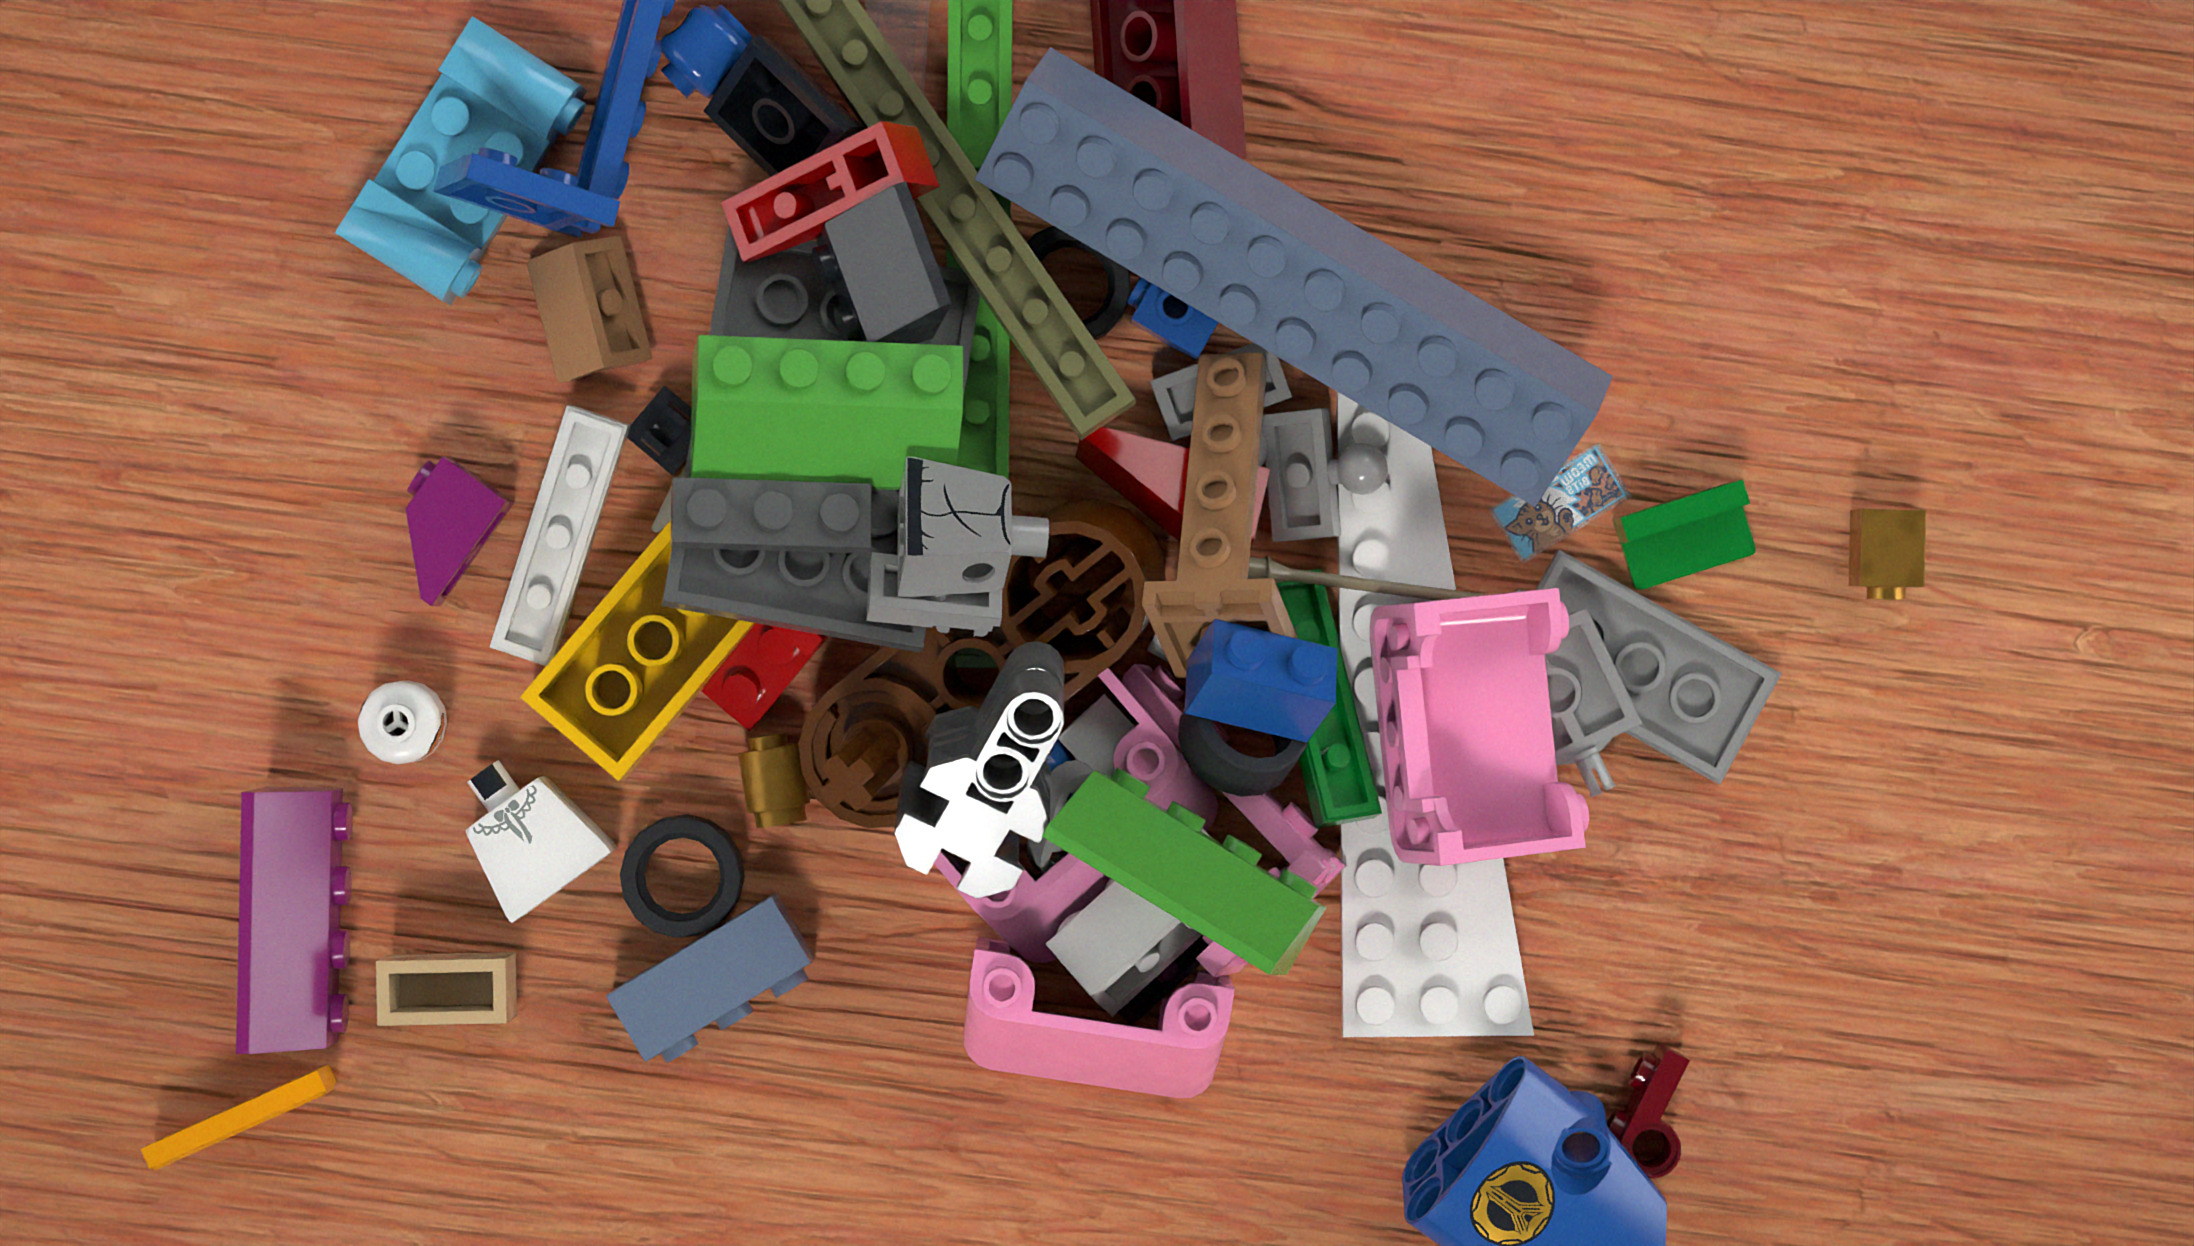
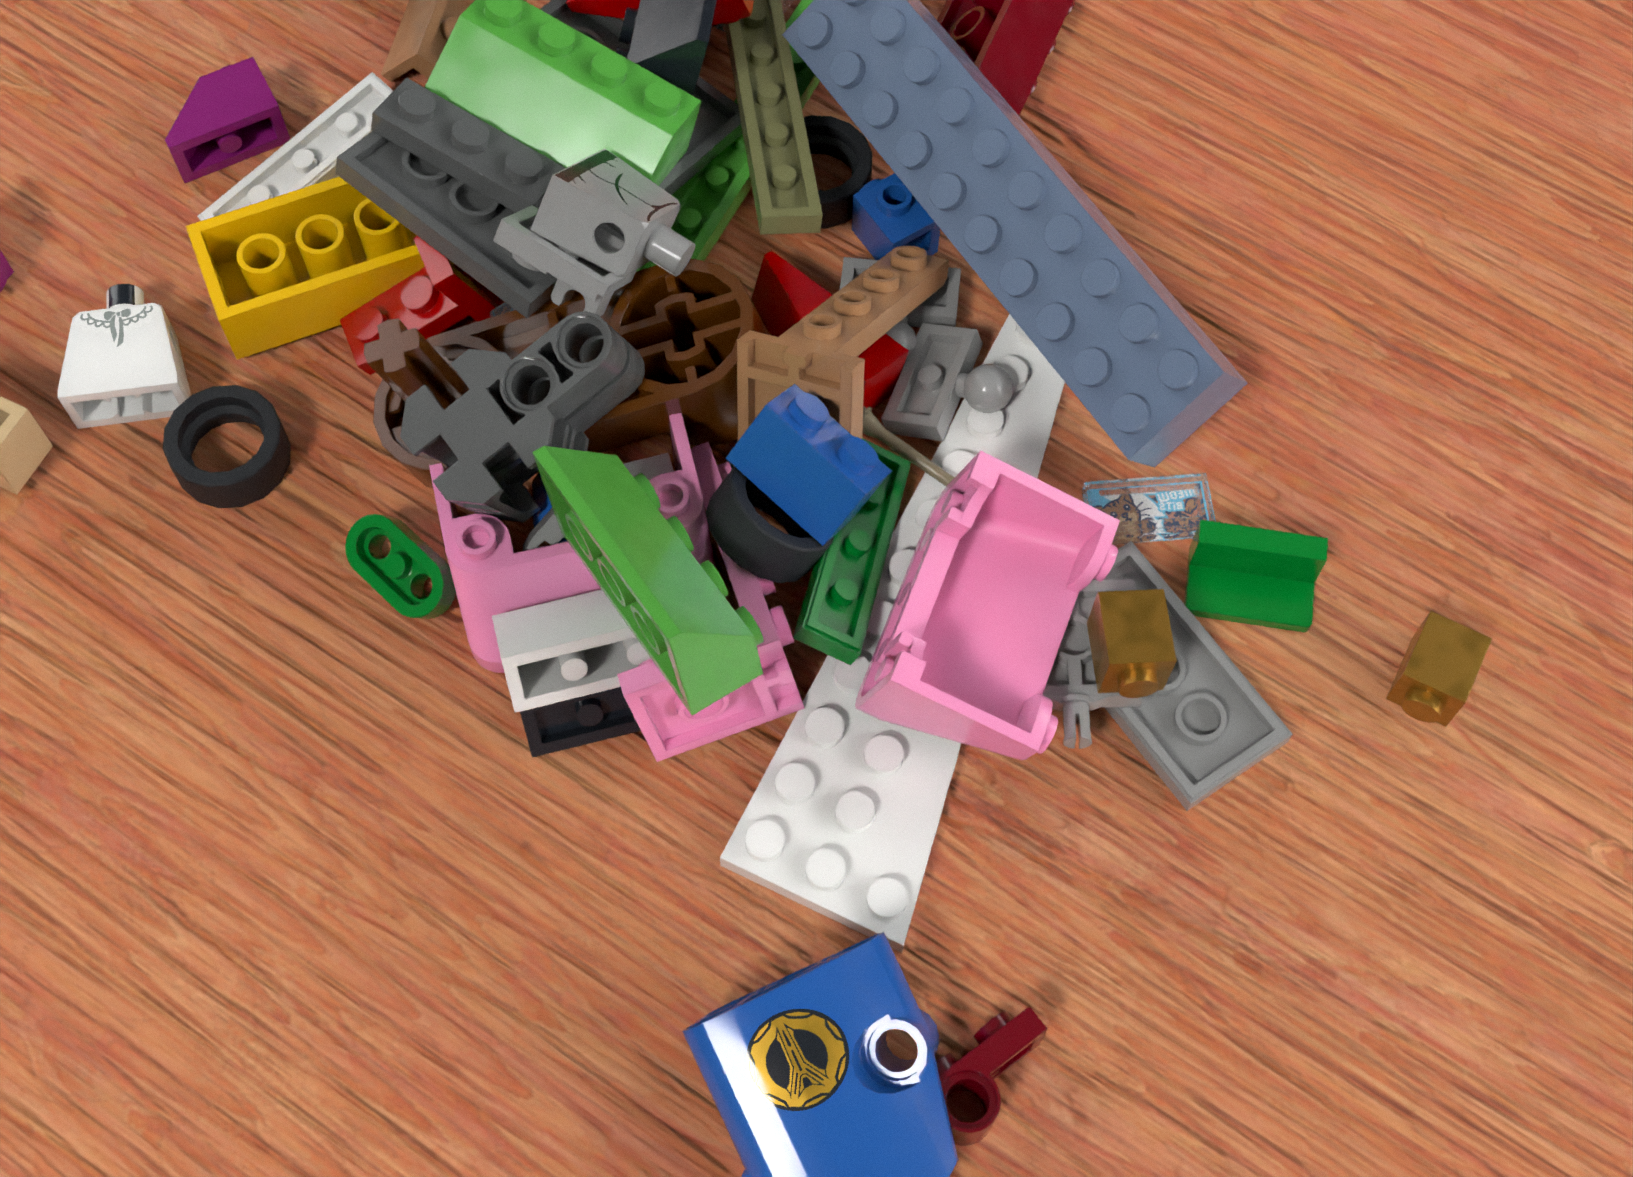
camera: 25 degrees right, 25 degrees down
(424, 728) = (88, 226): white head -> none
(712, 980) = (192, 532): sand blue brick -> none
(773, 781) = (347, 409): pearl gold brick -> none
(916, 916) = (404, 570): none -> green plate
(1165, 1061) = (528, 764): bright pink windscreen -> none
(1616, 693) = (1131, 642): none -> pearl gold brick

